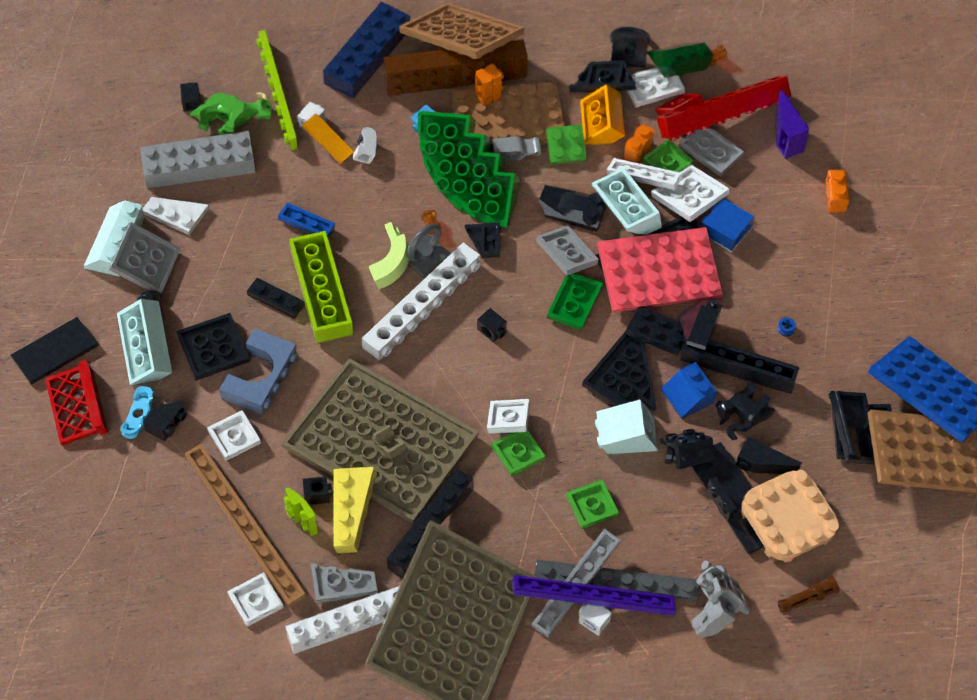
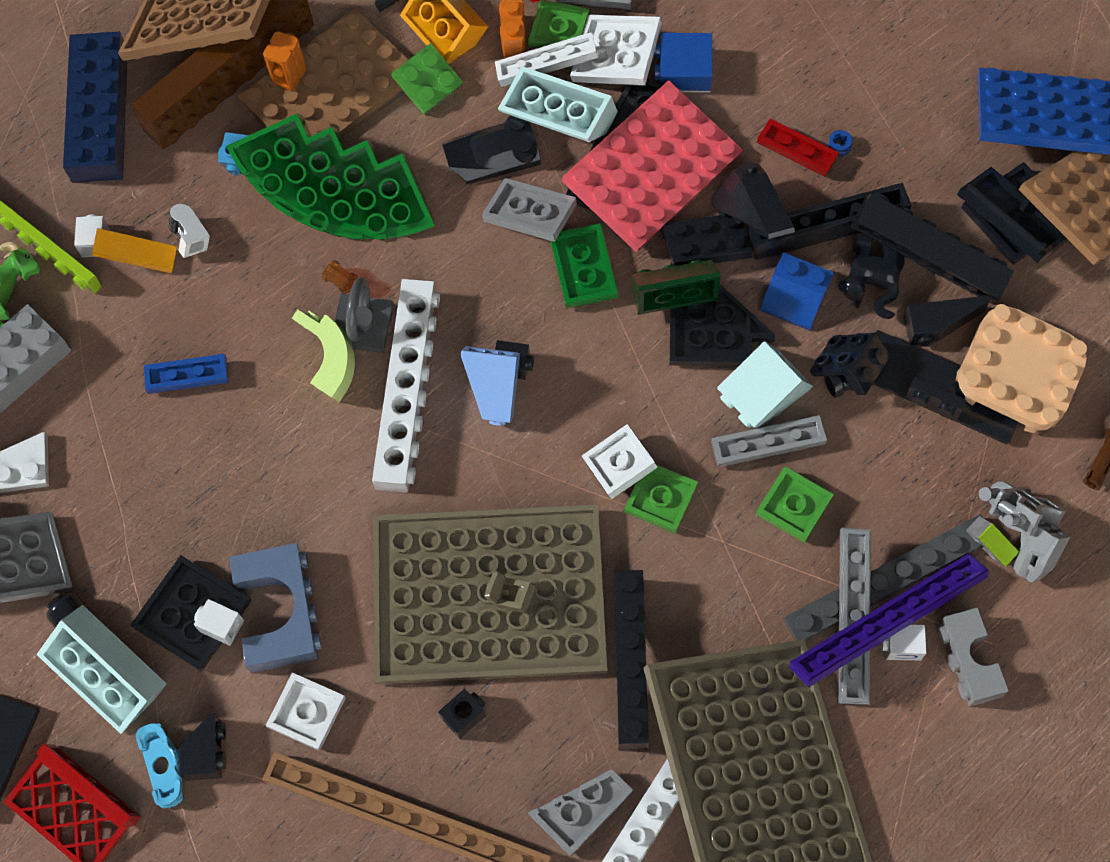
camera: 30 degrees left, 10 degrees up
(222, 357) = (218, 622): none -> white brick
(275, 298) = (221, 497): black plate -> none
(300, 511) = (459, 754): lime slope -> none
(321, 287) = (270, 447): lime brick -> none
(351, 502) = (519, 700): light yellow wedge -> none
(469, 328) = (493, 381): none -> light blue slope
(485, 238) = (420, 256): black wing -> none
(516, 147) = (370, 120): light grey piece -> none
(605, 461) = (768, 441): none -> light grey plate
(615, 341) = (675, 286): none -> dark green slope
(621, 666) = (977, 682): none -> light grey arch
(690, 595) = (994, 542): none -> lime piece
(757, 313) = (797, 147): none -> red plate
(787, 413) = (931, 247): none -> black brick

